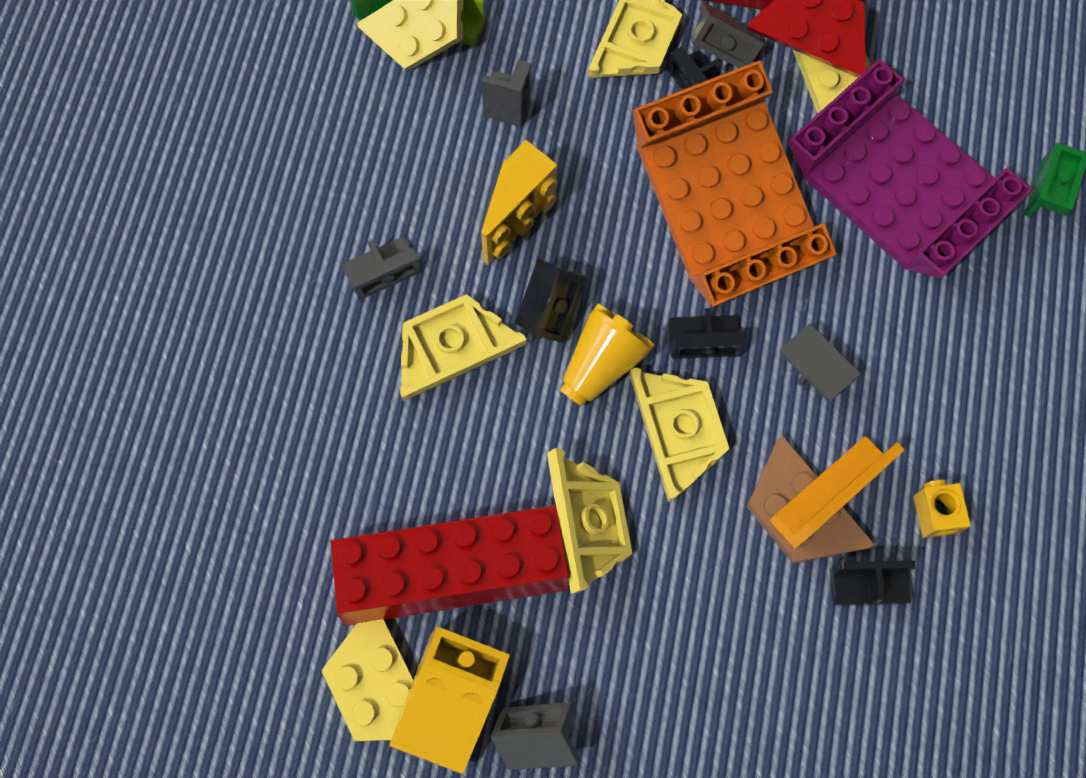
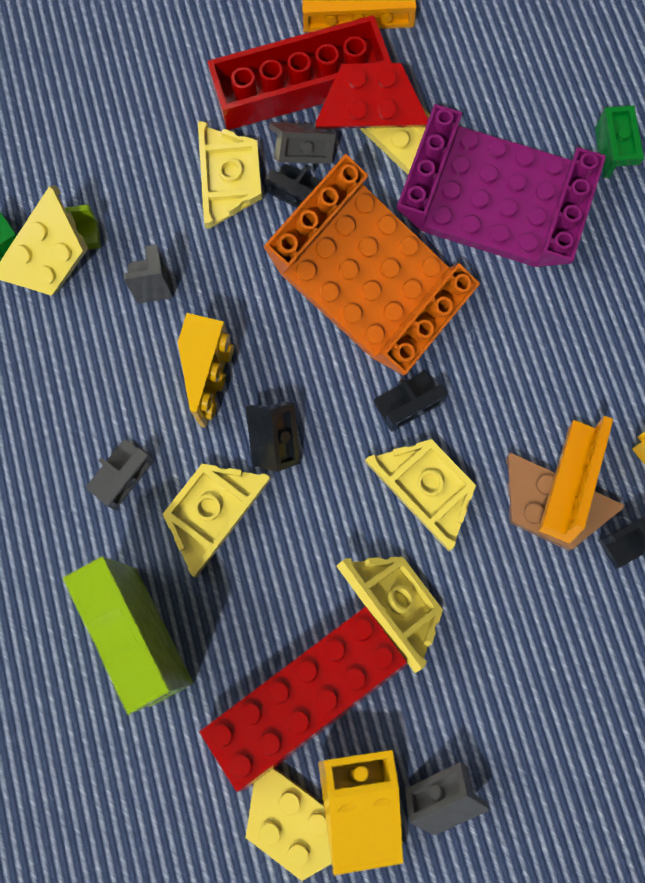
camera: 20 degrees left, 5 degrees up
(314, 408) = (128, 633): none -> lime tile
(602, 355) = (338, 461): yellow cone -> none
(819, 363) = (511, 380): dark grey panel -> none

